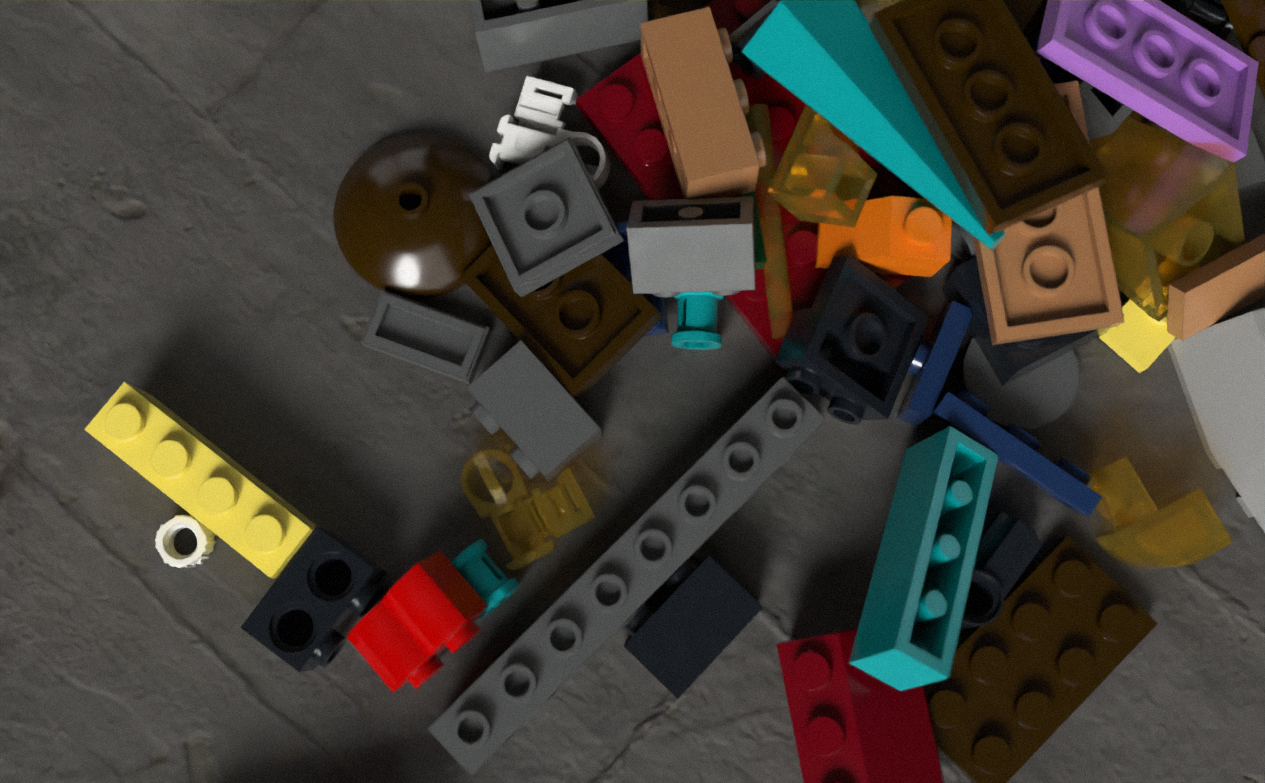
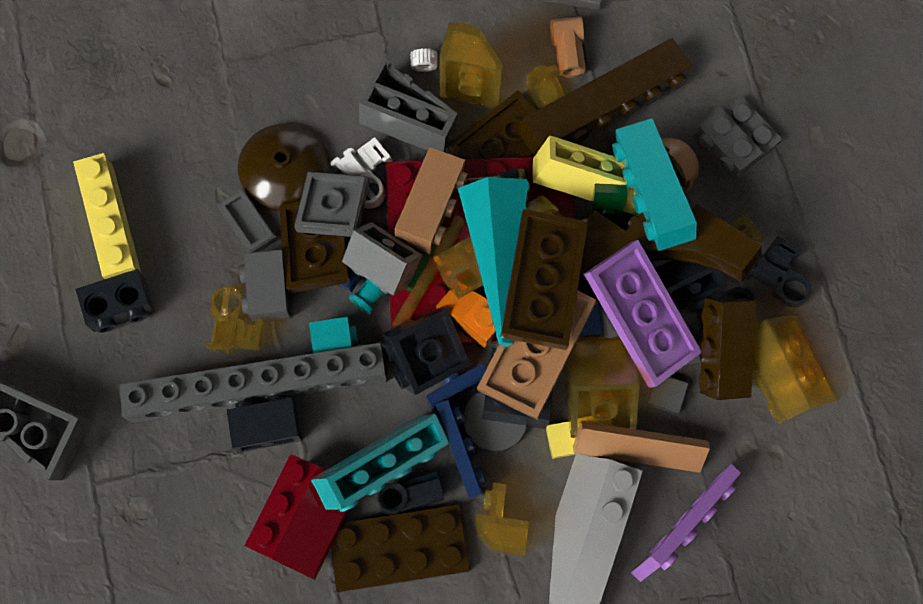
camera: 30 degrees right, 5 degrees down
(165, 542) = (73, 232): white axle -> none
(417, 622) = (149, 339): red brick -> none
(484, 576) = (190, 341): teal bush -> none
(695, 419) = (332, 334): none -> teal brick

